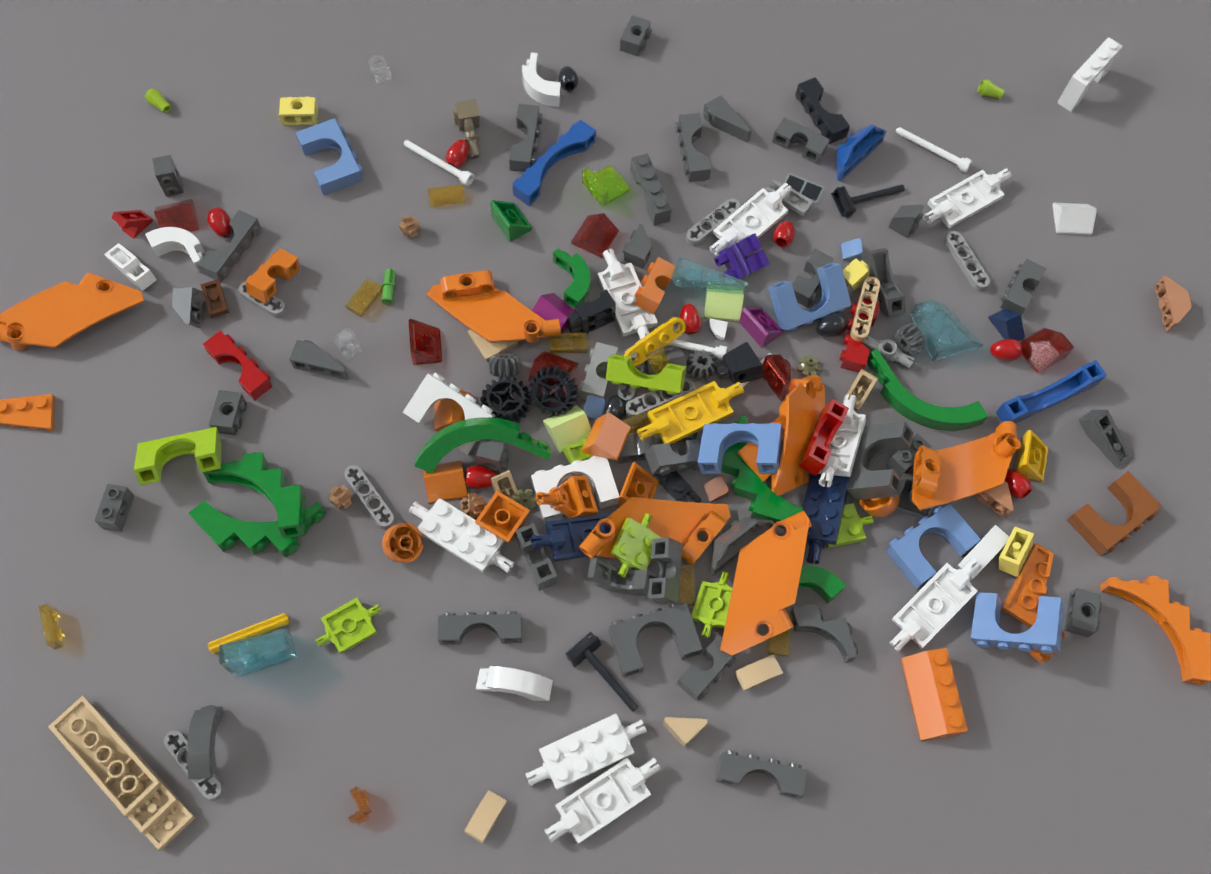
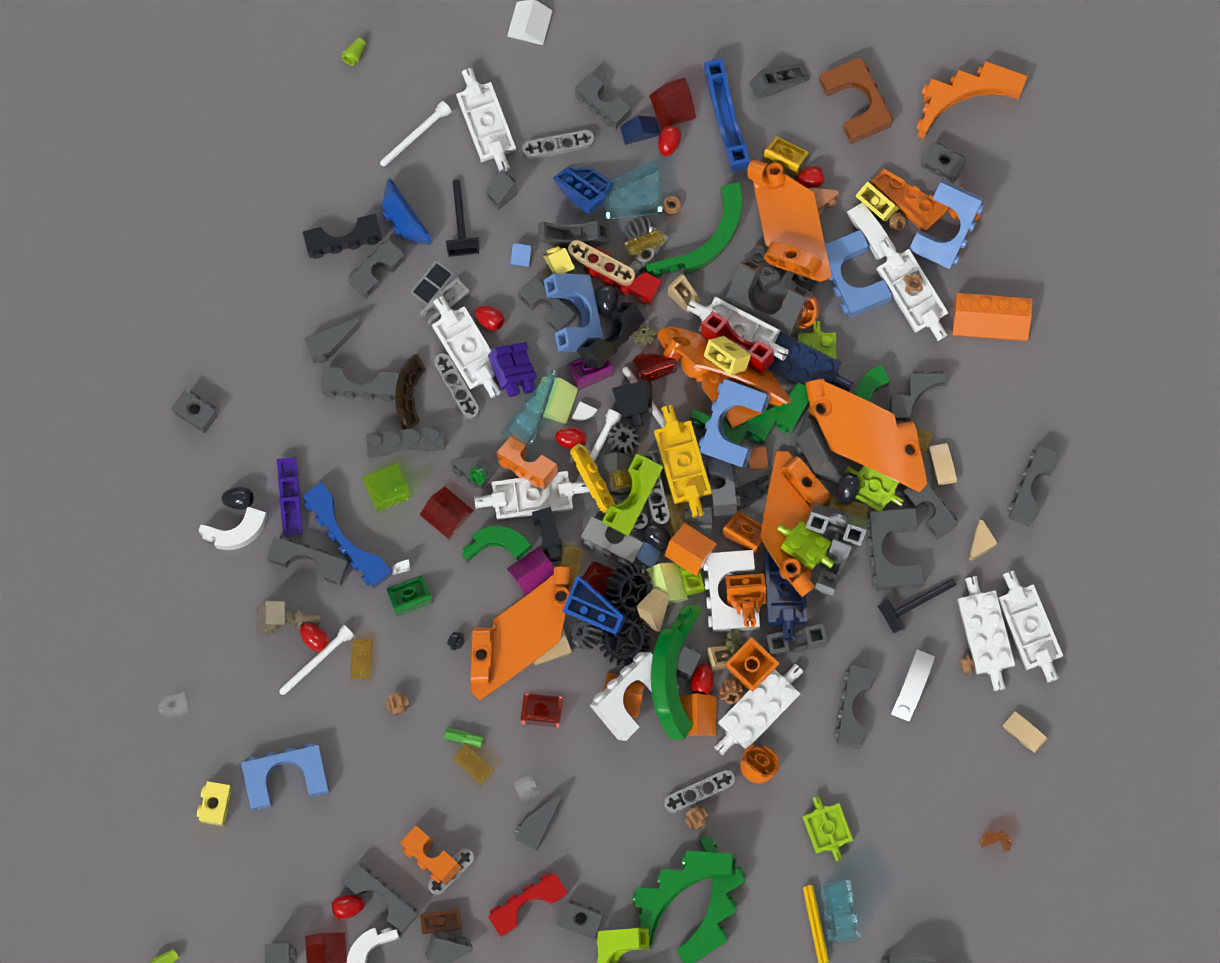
camera: 75 degrees left, 10 degrees up
(477, 262) = (456, 640): none -> black plate
(525, 354) = (592, 607): none -> blue wedge
(536, 209) = (401, 567): none -> white tile
(541, 417) = (653, 609): none -> tan slope
(547, 737) = (967, 664): none -> medium nougat plate
(571, 115) = (289, 496): none -> dark purple slope
(631, 243) = (478, 475): none -> green plate
(696, 178) = (404, 398): none -> dark brown tile
(706, 575) = (848, 488): none -> black animal
(806, 424) = (727, 355): none -> light yellow brick
(816, 342) = (625, 321): none -> black arch
(901, 345) = (639, 244): none -> clear yellow plate
(932, 284) = (584, 187): none -> blue wedge
(943, 595) = (913, 278): none -> medium nougat plate
(946, 361) = (671, 199): none -> medium nougat plate
(1002, 581) = (897, 222): none -> medium nougat plate

